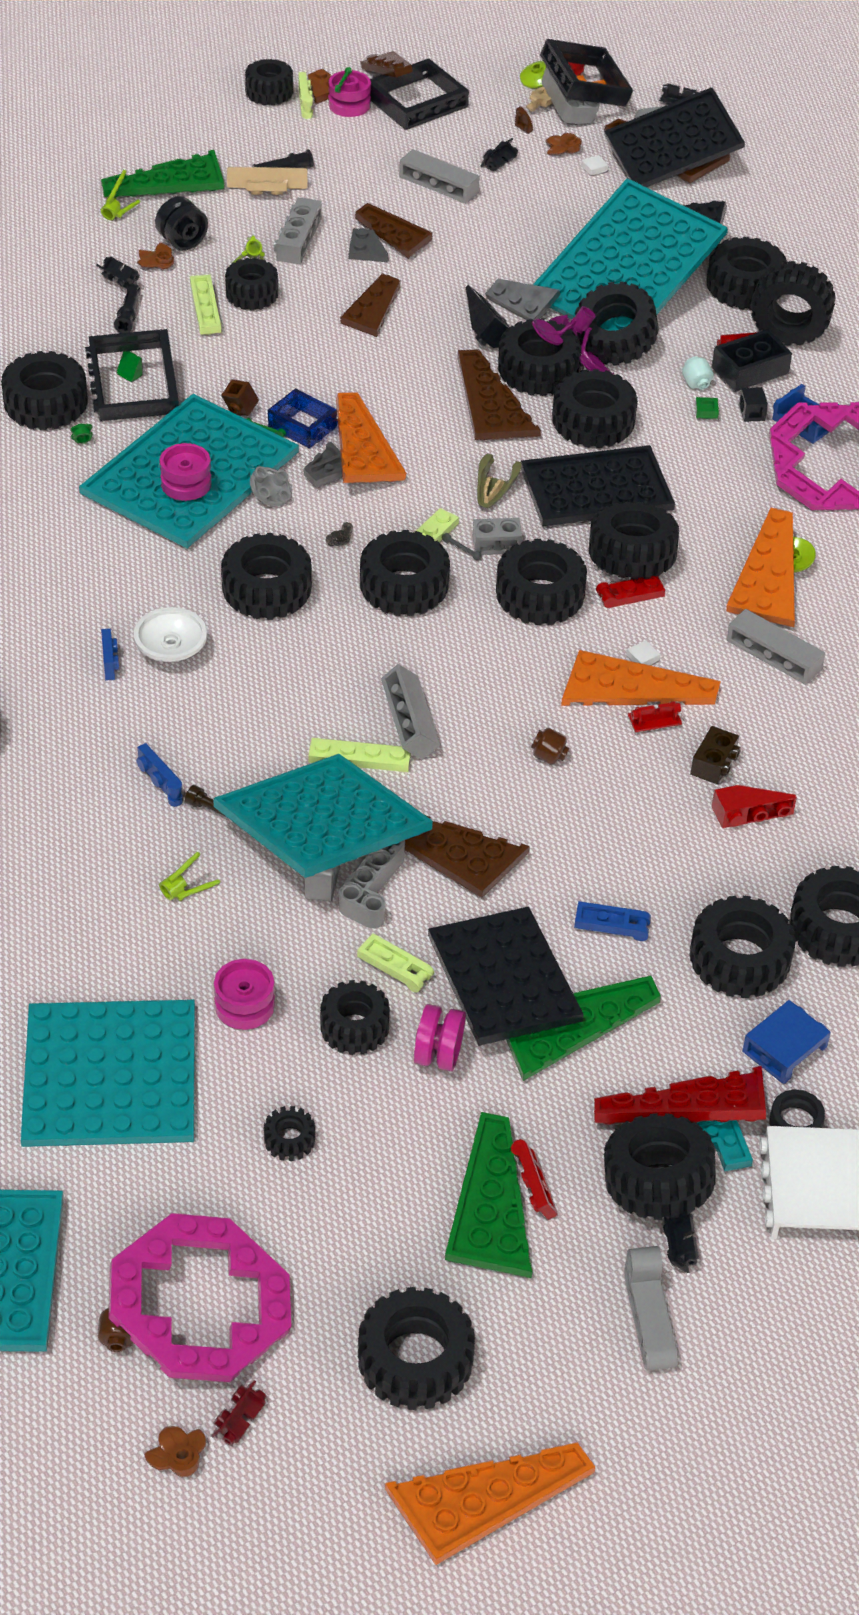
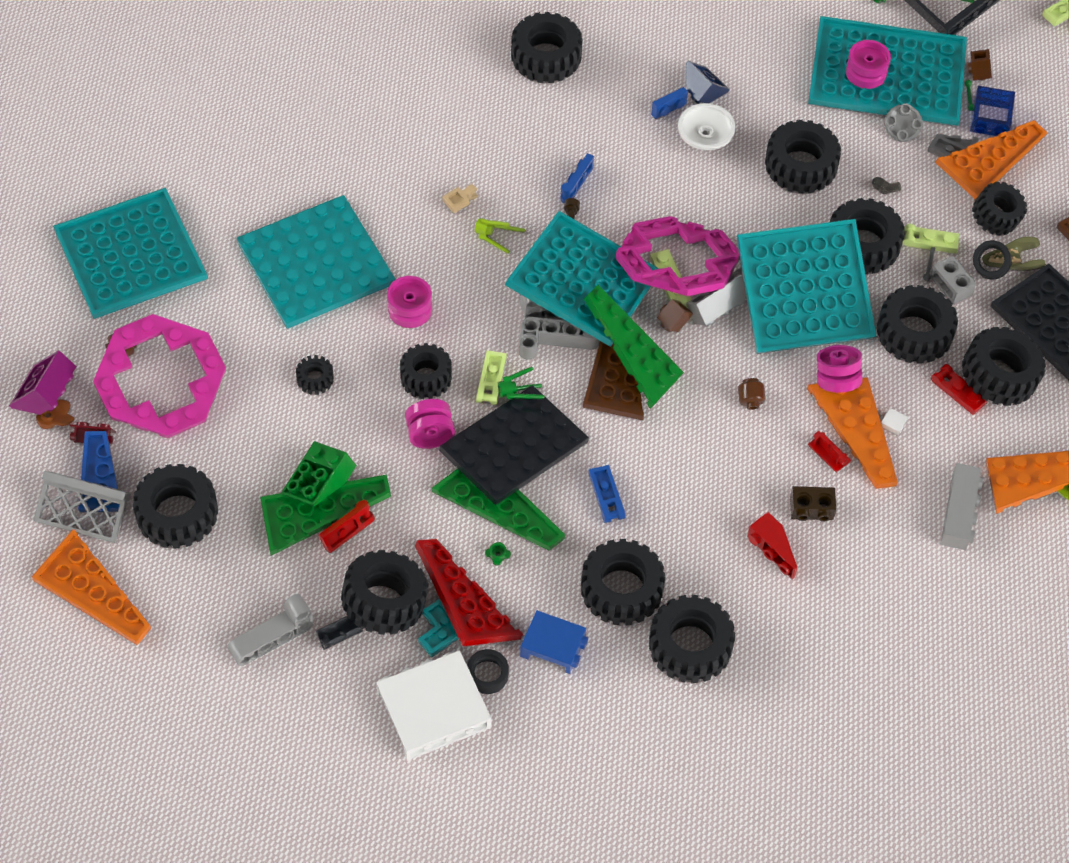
camera: 65 degrees right, 10 degrees up
(104, 615) = (703, 84): none -> slope
(113, 894) = (459, 199): none -> tan plate
(132, 1440) = (44, 384): none -> magenta slope
(319, 1428) = (98, 467): none -> blue wing
(333, 1444) = (87, 488): none -> light grey fence
(372, 743) = (638, 242): none -> dark pink plate
(412, 766) = (674, 315): none -> reddish brown brick
(429, 944) = (508, 388): none -> green plant
(434, 462) = (1008, 200): none -> black tyre
(449, 639) = (806, 286): none -> teal plate
(452, 808) = (636, 350): none -> green wing
(453, 1176) = (319, 474): none -> green slope
(502, 482) = (990, 245): none -> black tyre
(566, 659) = (839, 368): none -> dark pink wheel
(640, 1043) = (498, 547): none -> green plate

